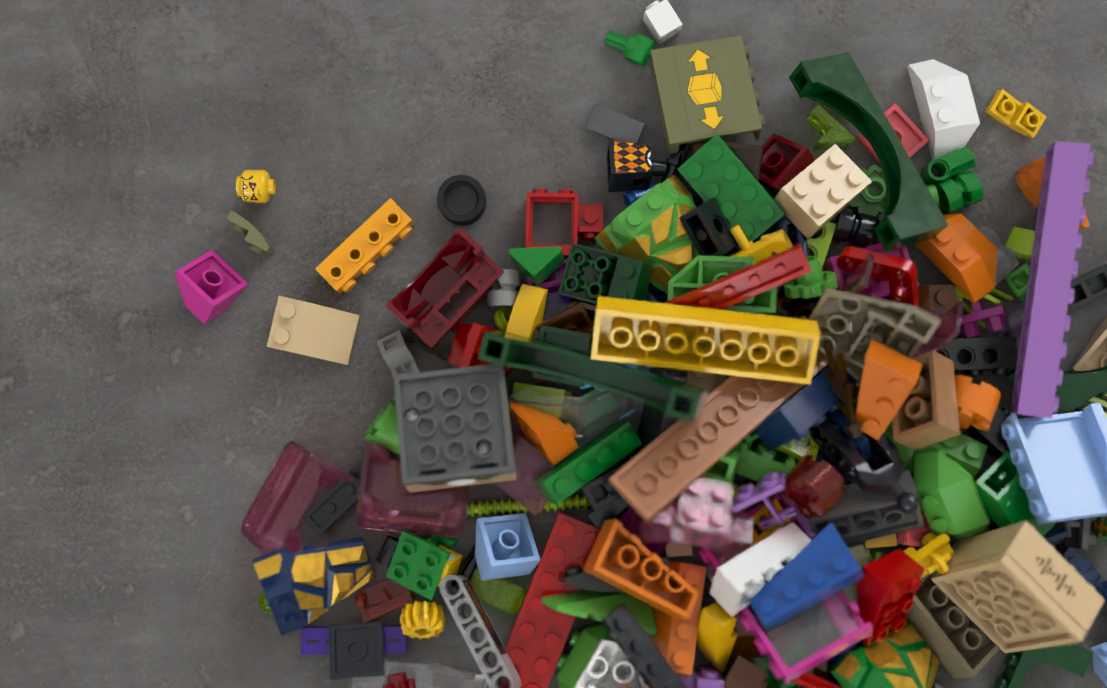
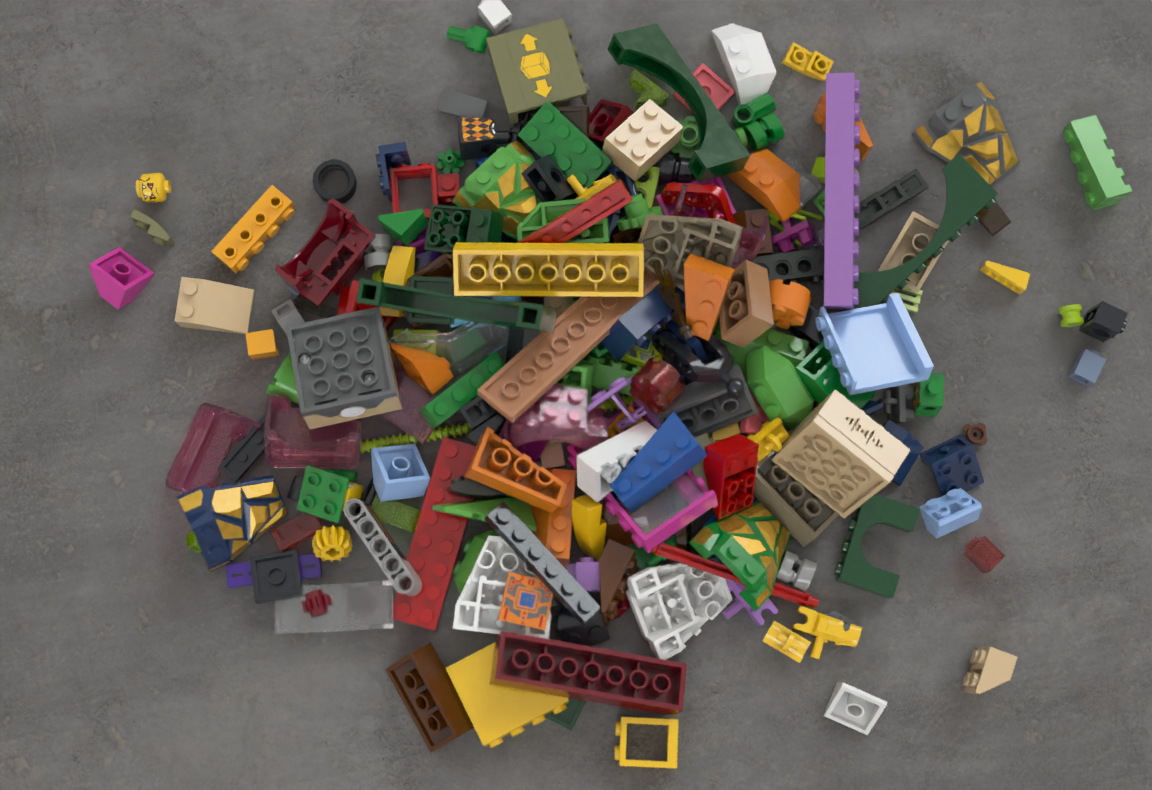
camera: 10 degrees left, 5 degrees down
(362, 380) = (261, 344): none -> light orange panel
(527, 178) = (390, 156): none -> dark blue bracket
(594, 194) = (450, 162): none -> green plant

